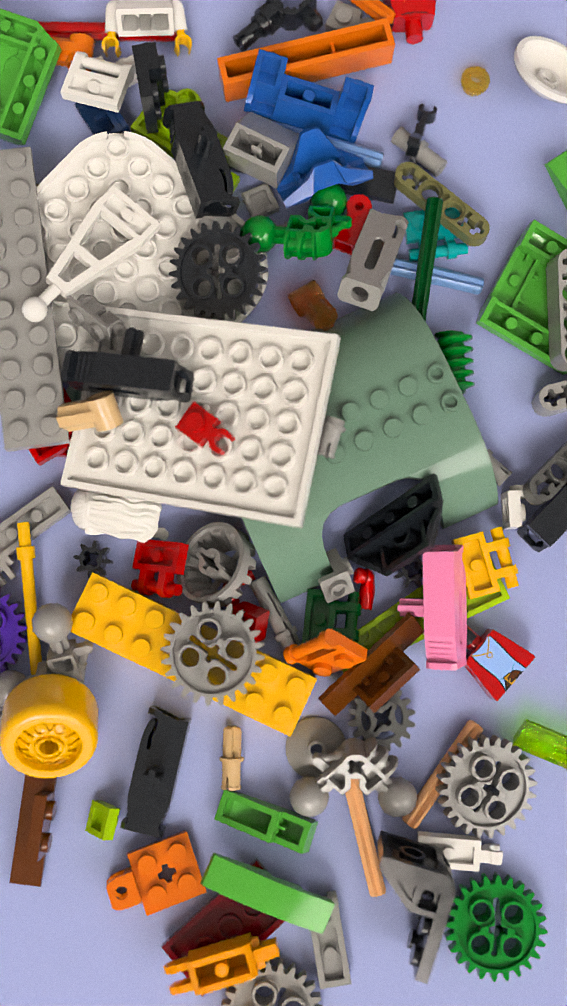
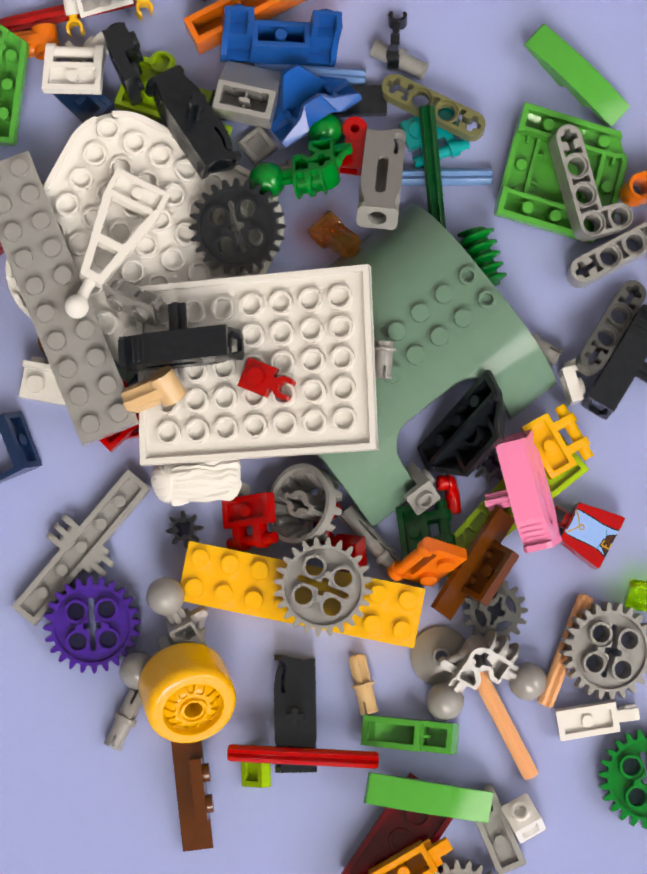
camera: 10 degrees left, 0 degrees up
(25, 554) = (119, 539): yellow bar -> none
(143, 880) = (307, 813): orange plate -> none
(151, 819) = (303, 756): none -> red axle
(359, 935) = (523, 818): none -> white bracket
(413, 871) = (571, 751): bracket -> none

